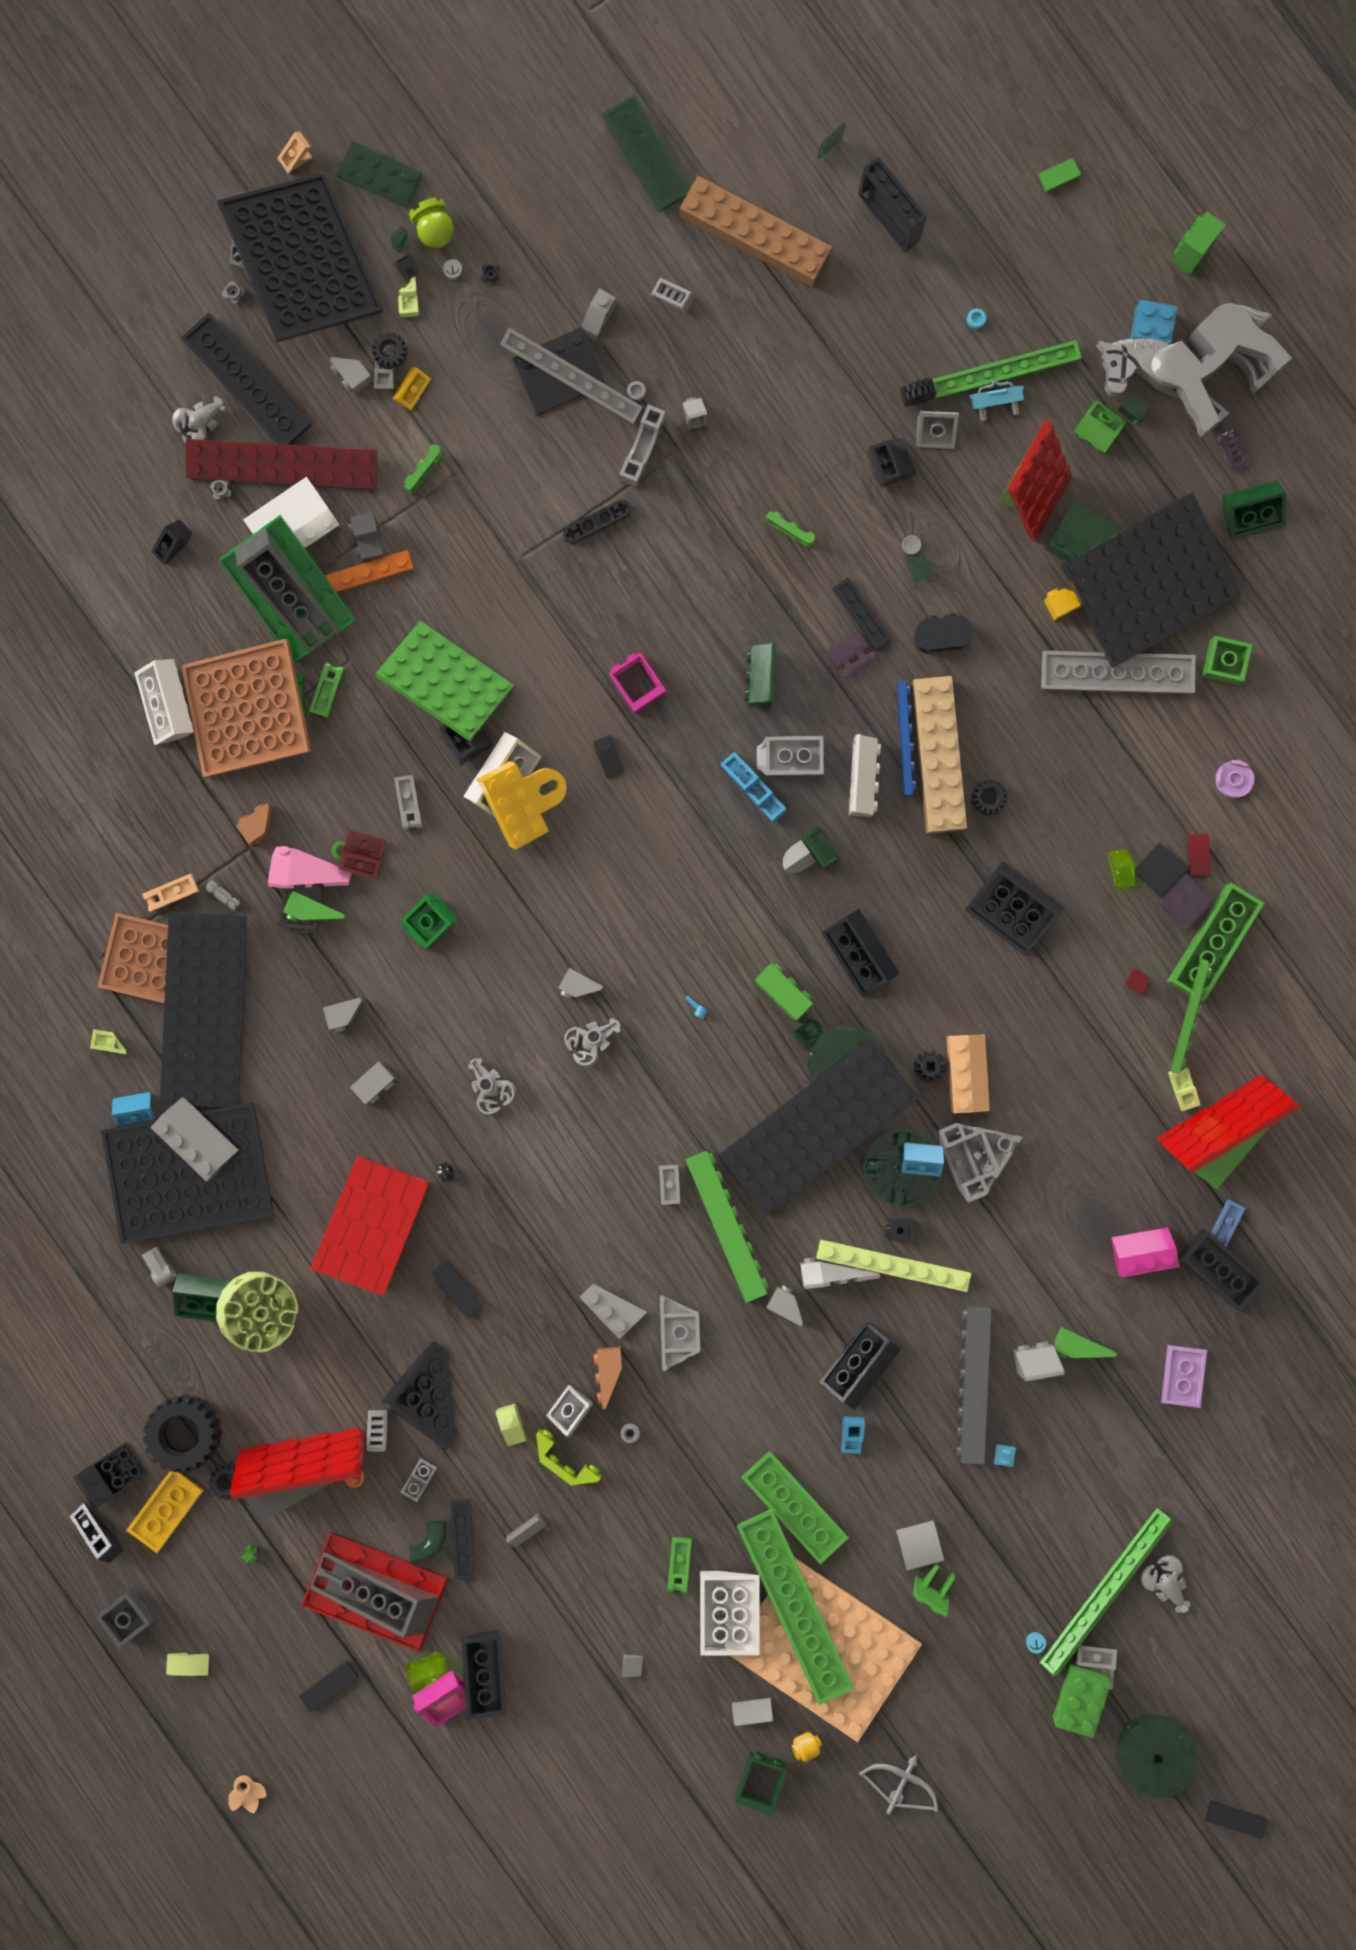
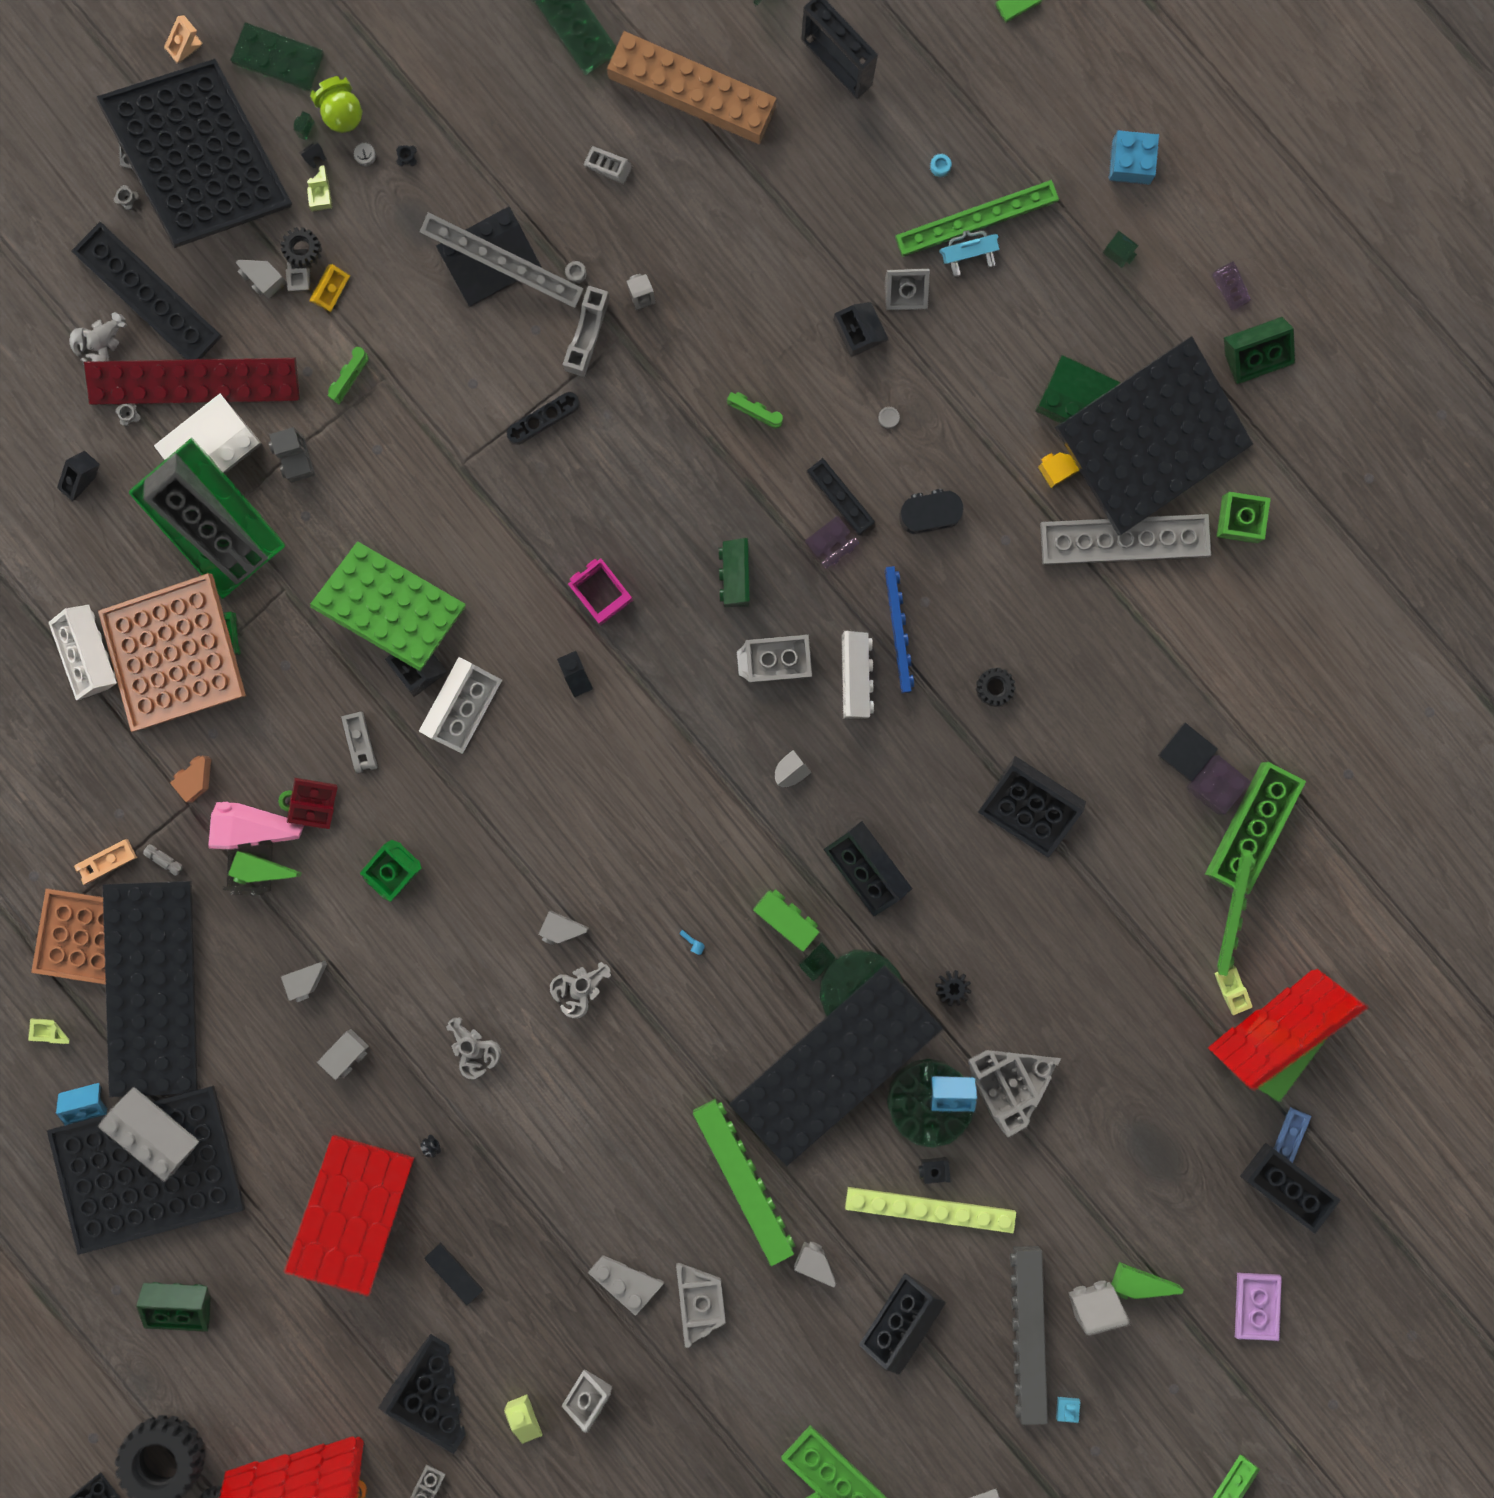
camera: 10 degrees left, 0 degrees up
(161, 1271) = (125, 1281): light grey piece -> none
(257, 1311) = (211, 1315): yellowish green brick -> none
(326, 690) = (260, 625): bright green plate -> none
(371, 571) = (299, 491): orange plate -> none
(376, 1447) = (384, 1447): light grey slope -> none
(518, 801) = (479, 734): yellow brick -> none
(586, 1475) = (612, 1468): lime slope -> none
(598, 312) = (527, 189): light grey slope -> none
(610, 1365) = (626, 1347): nougat slope -> none
(630, 1439) = (655, 1425): light grey plate -> none
(669, 1184) = (677, 1140): light grey plate -> none
(753, 787) = (736, 696): dark azure slope -> none
(819, 848) = (814, 757): dark green hinge -> none
(821, 1273) = (851, 1227): light grey wedge -> none
(852, 1434) = (899, 1401): dark azure brick -> none
(918, 392) = (883, 249): black tyre -> none
(919, 568) = (899, 442): clear green panel -> none
(939, 755) = (936, 645): tan brick -> none
(968, 1073) = (995, 993): light nougat slope -> none
(1038, 481) = (1022, 337): red piece -> none
(1100, 426) = (1084, 272): bright green slope -> none
(1122, 868) = (1146, 753): clear neon green slope -> none
(1137, 981) = (1173, 876): dark red slope -> none
(1144, 1252) = (1204, 1174): dark pink slope -> none
(1197, 242) = (1175, 62): bright green brick -> none
(1199, 854) = (1229, 732): dark red slope -> none
(1226, 334) = (1216, 160): light grey animal -> none
(1234, 779) = (1261, 646): lavender tile -> none

